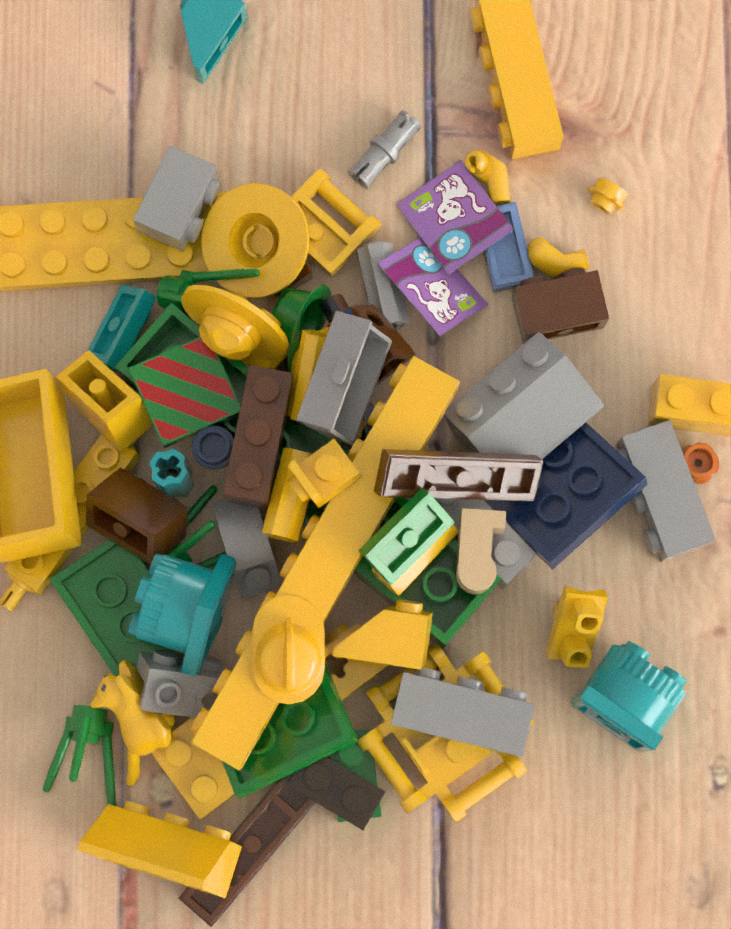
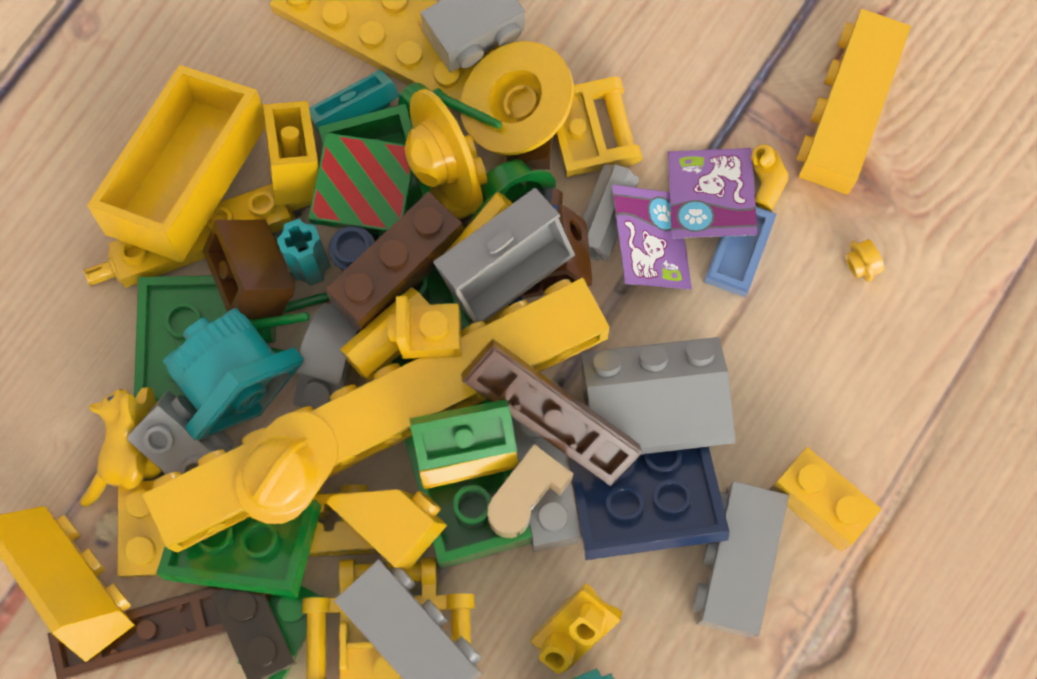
camera: 35 degrees right, 5 degrees down
(85, 728) = (79, 427): green plant -> none
(384, 149) = (688, 96): light grey pin -> none
(552, 261) = (775, 287): yellow arm -> none
(560, 305) = (757, 329): reddish brown brick -> none
(709, 461) = (804, 555): orange plate -> none

